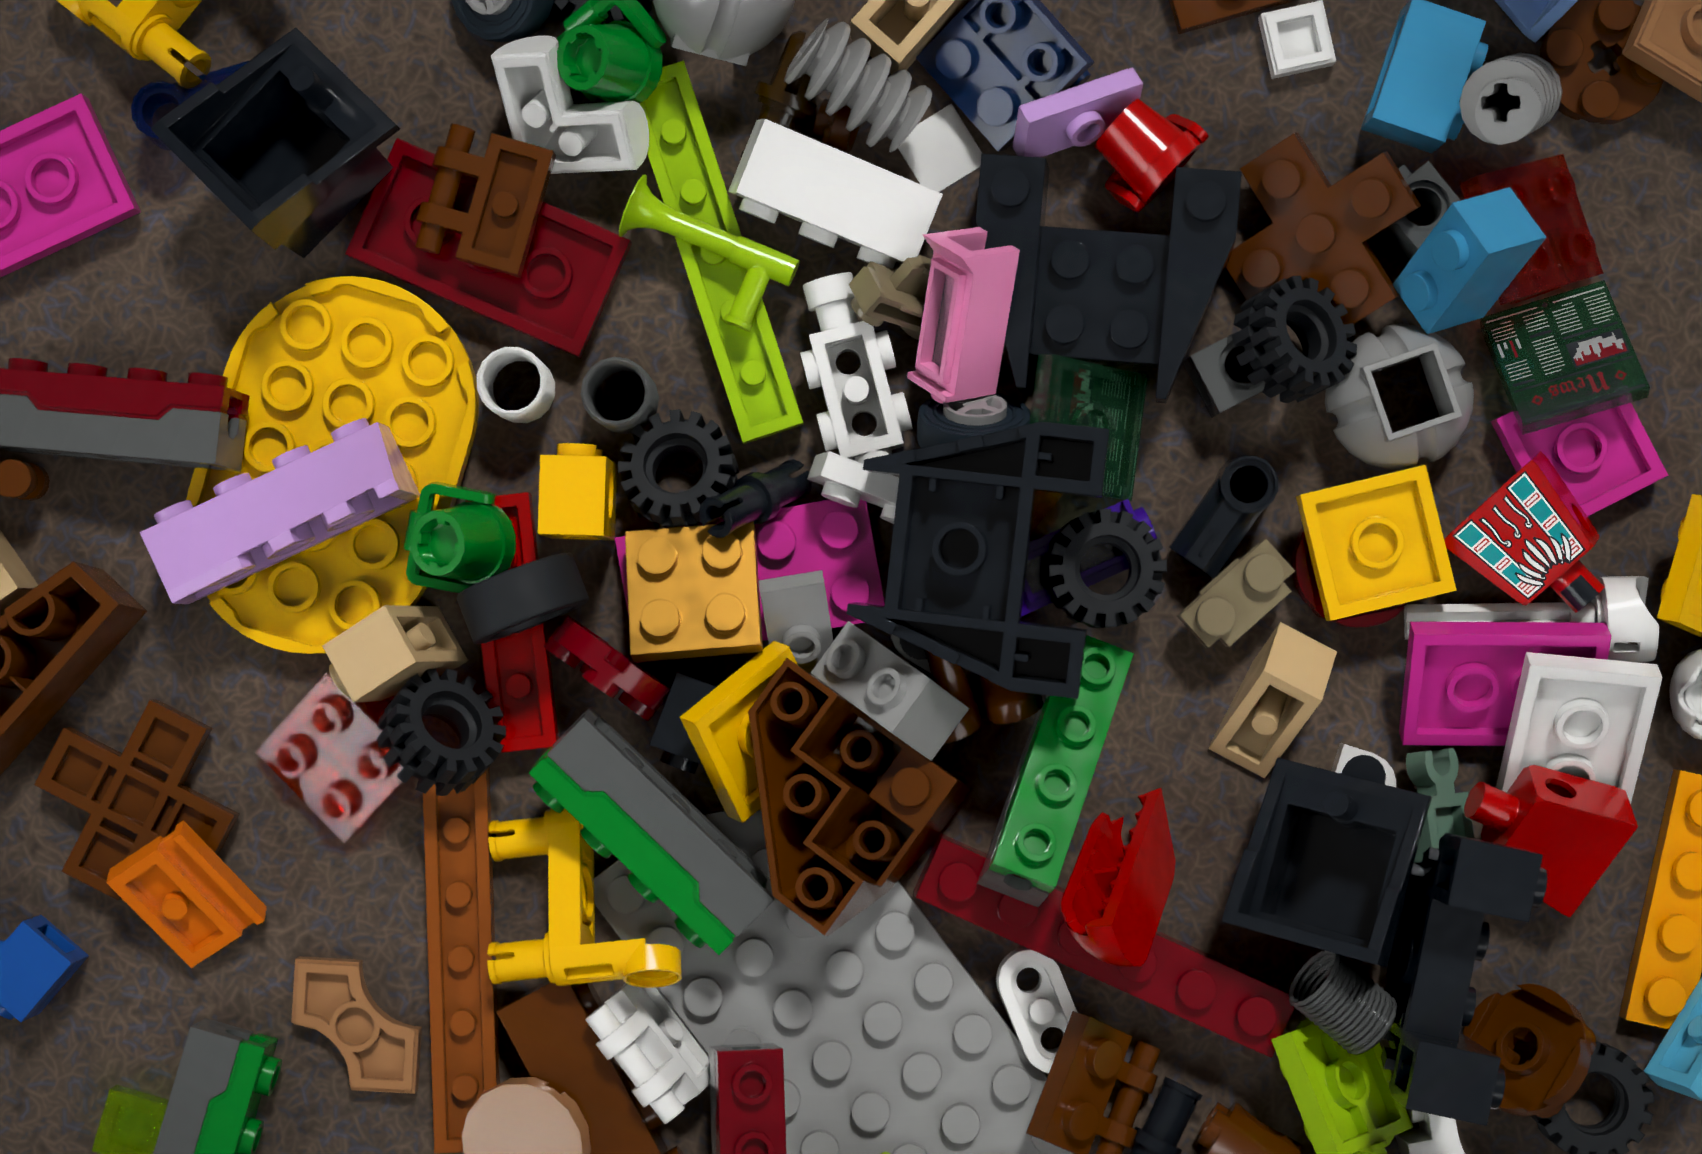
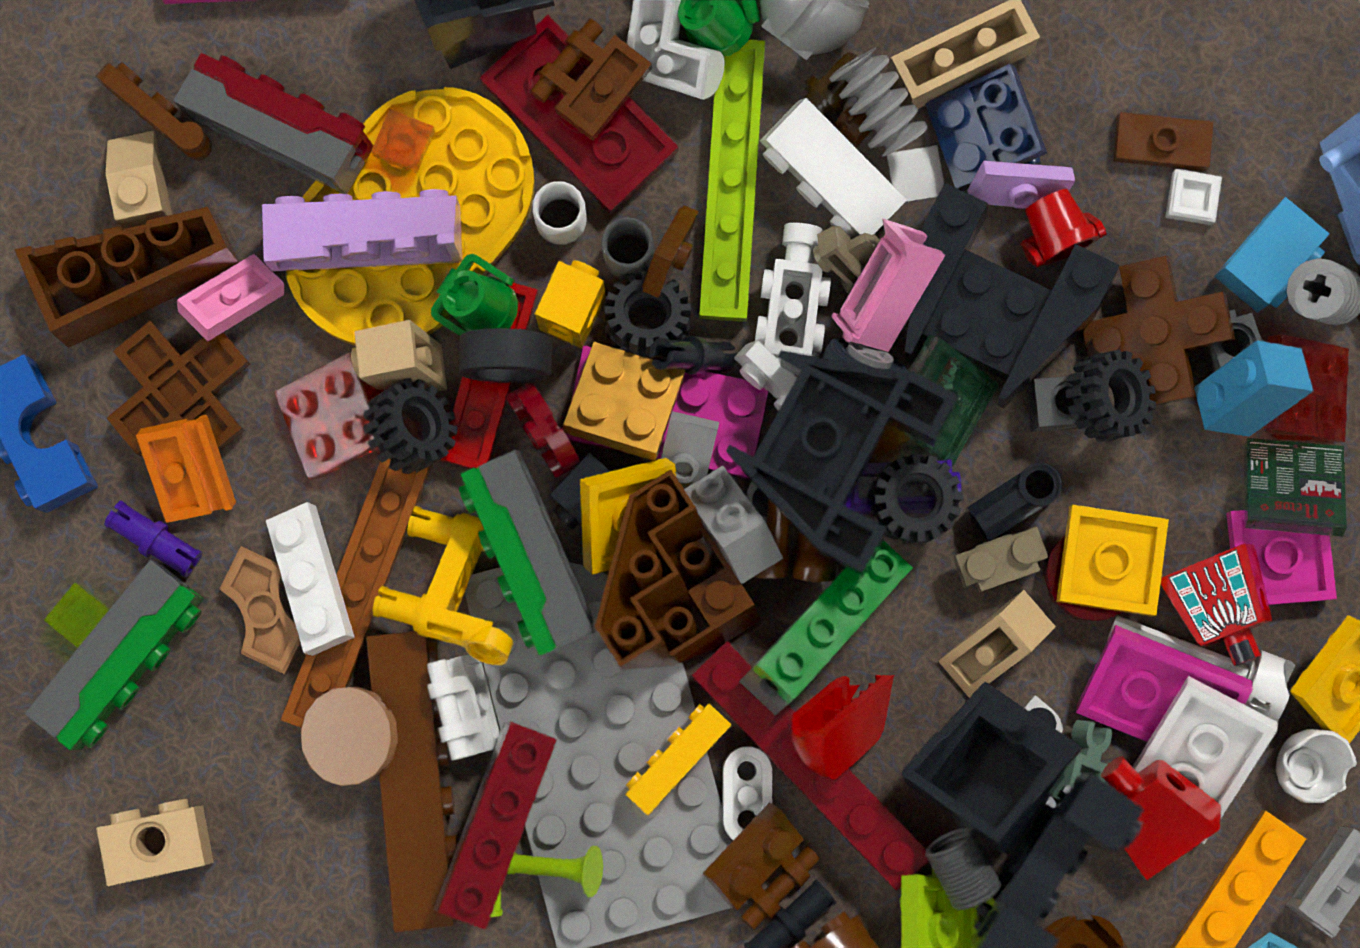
camera: 20 degrees right, 5 degrees down
(151, 659) = (230, 297): none -> bright pink plate
(183, 994) = (153, 539): none -> dark purple pin
(283, 374) = (403, 141): none -> clear orange plate
(397, 967) = (309, 579): none -> white plate
(676, 379) = (671, 252): none -> reddish brown plate
(762, 262) = (762, 195): lime piece -> none
(940, 1004) = (674, 763): none -> yellow piece
(1360, 412) = (1137, 469): light grey piece -> none

